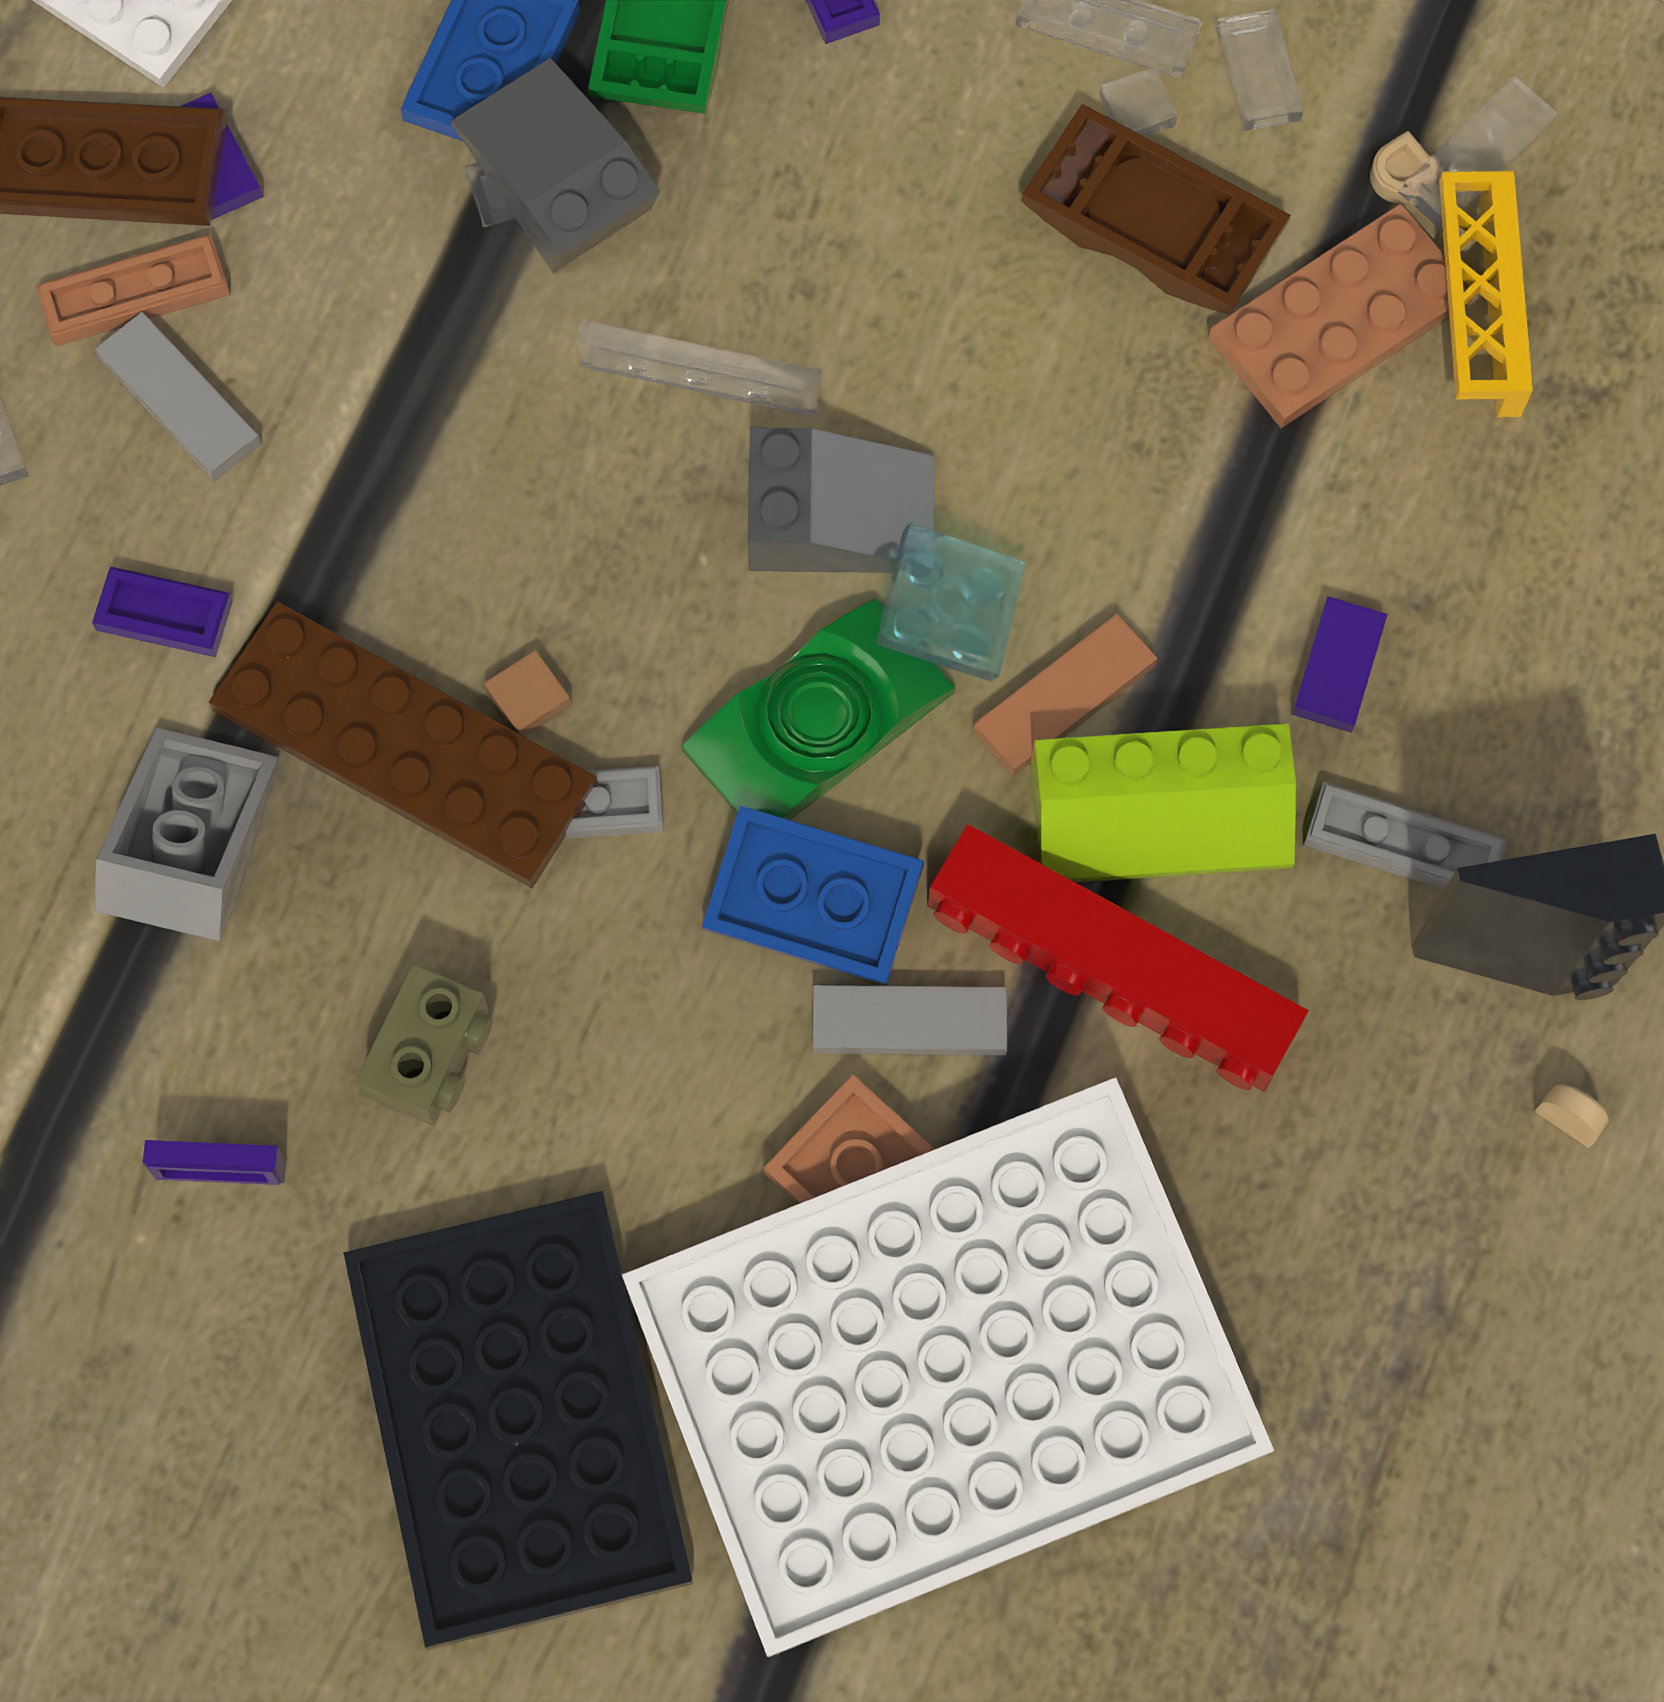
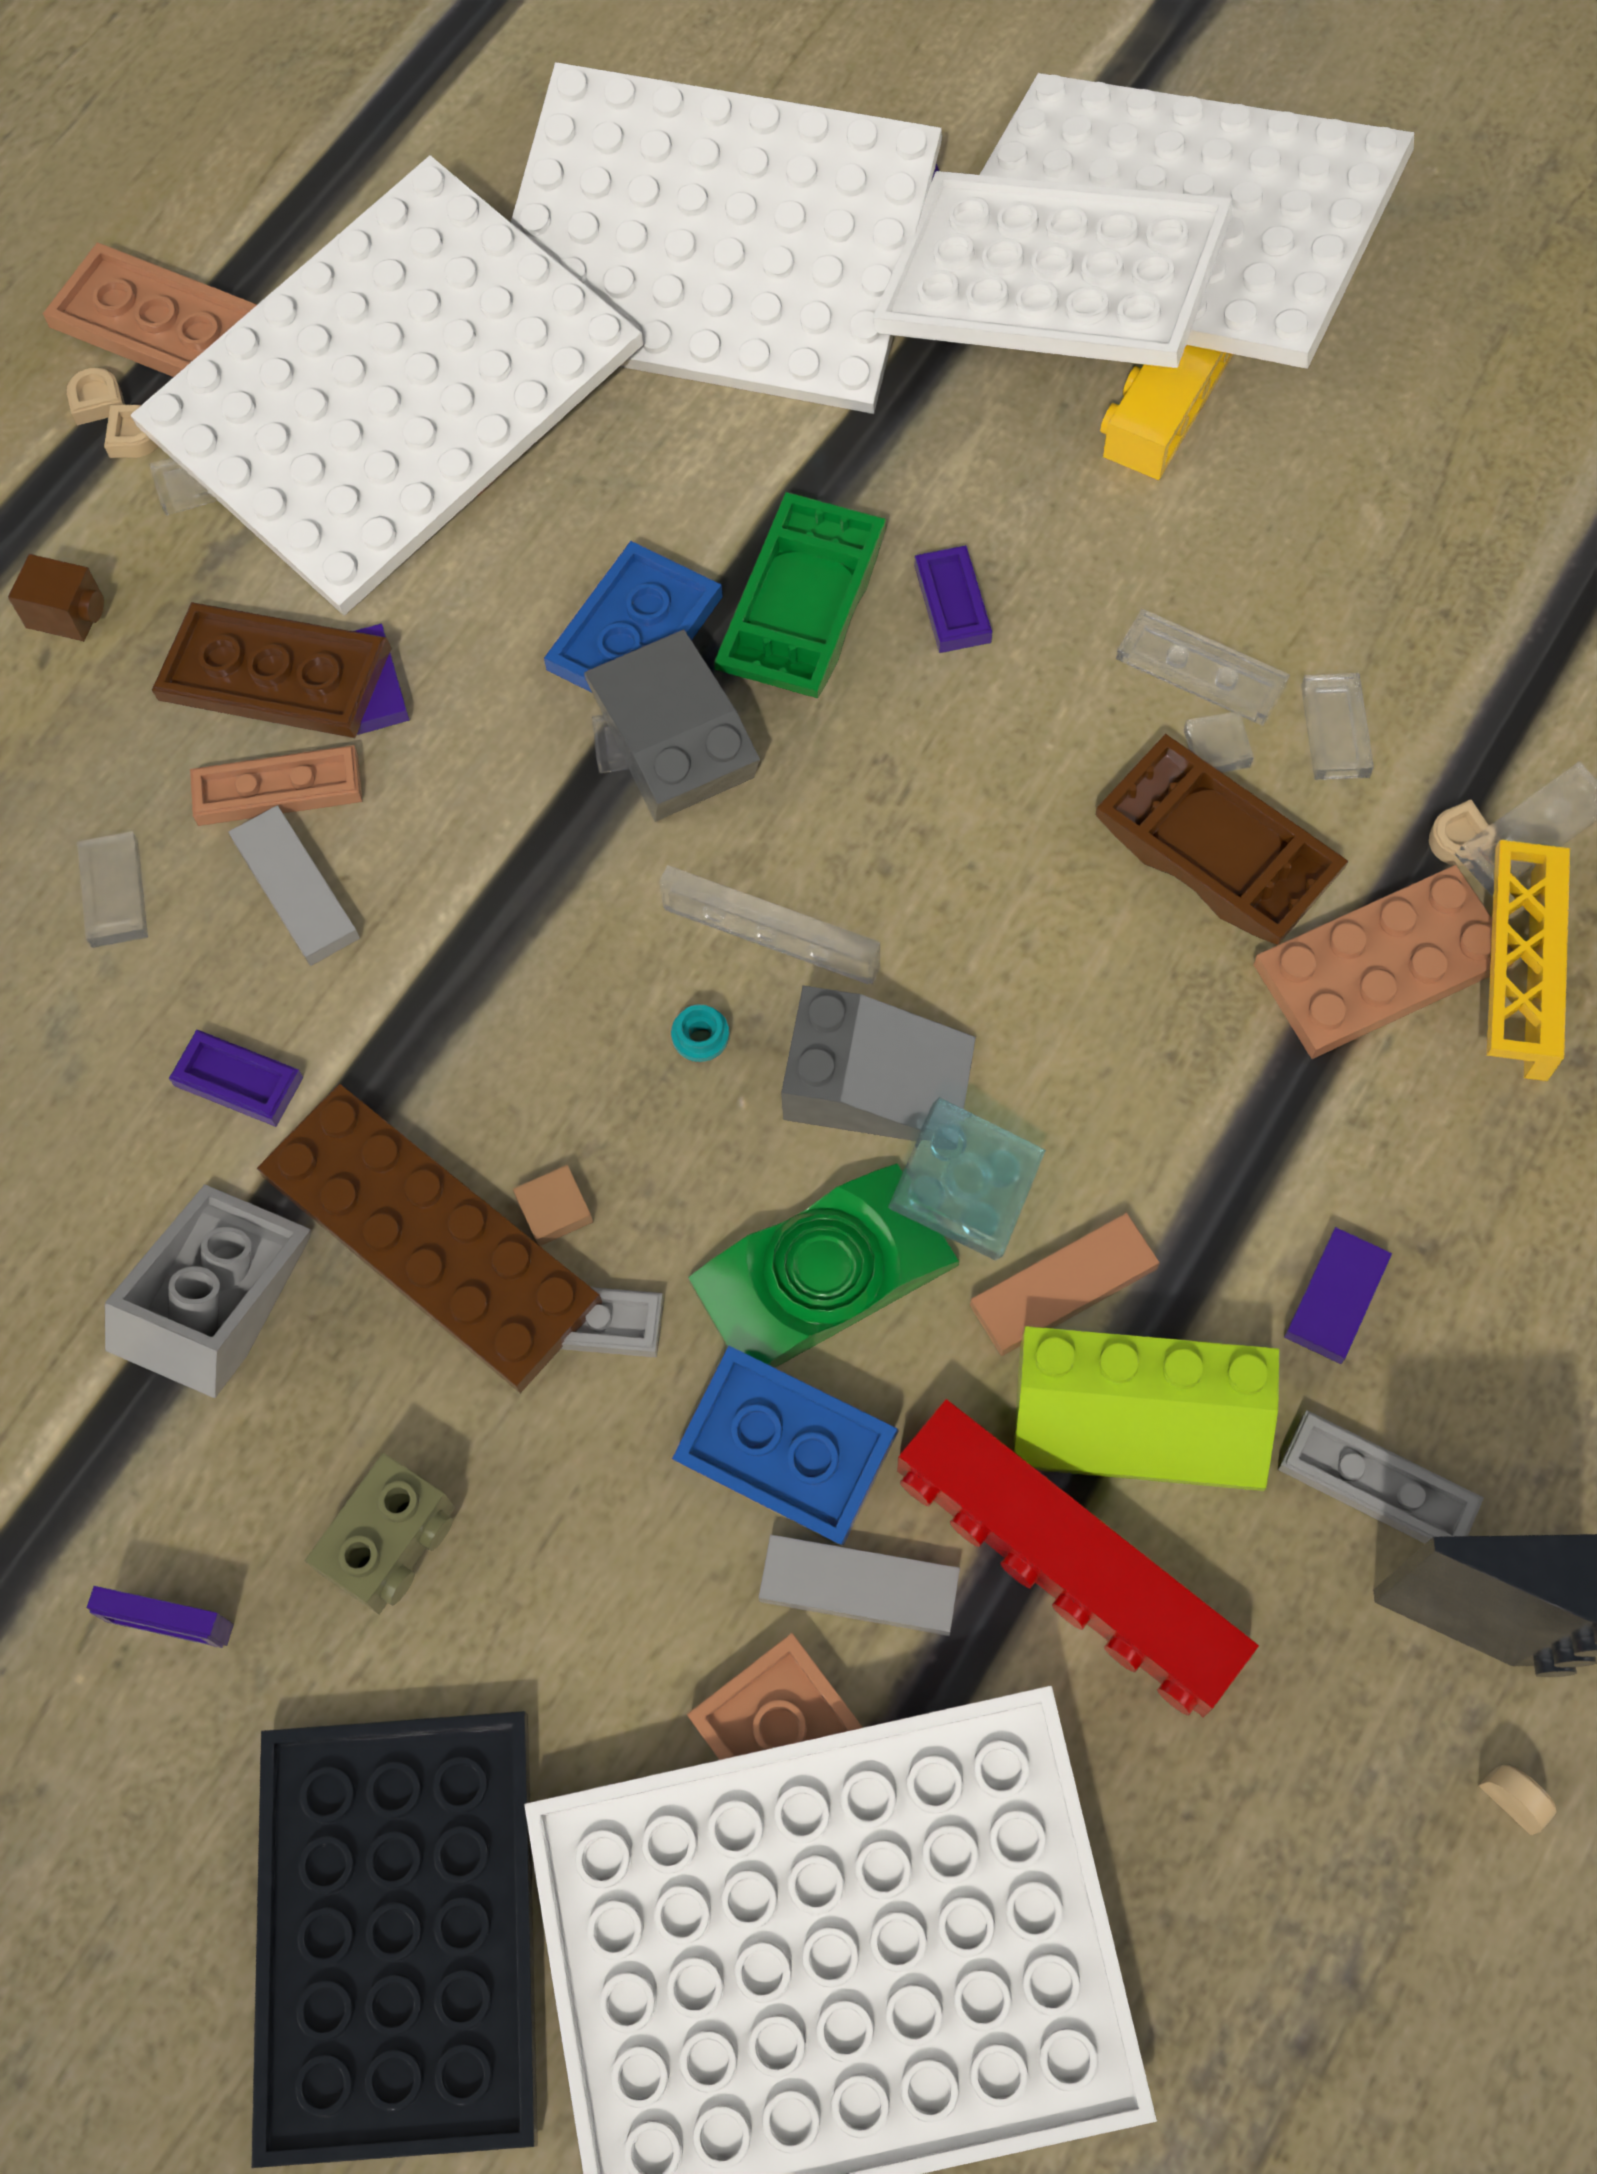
camera: 15 degrees right, 5 degrees down
(643, 477) = (700, 1018): none -> teal plate

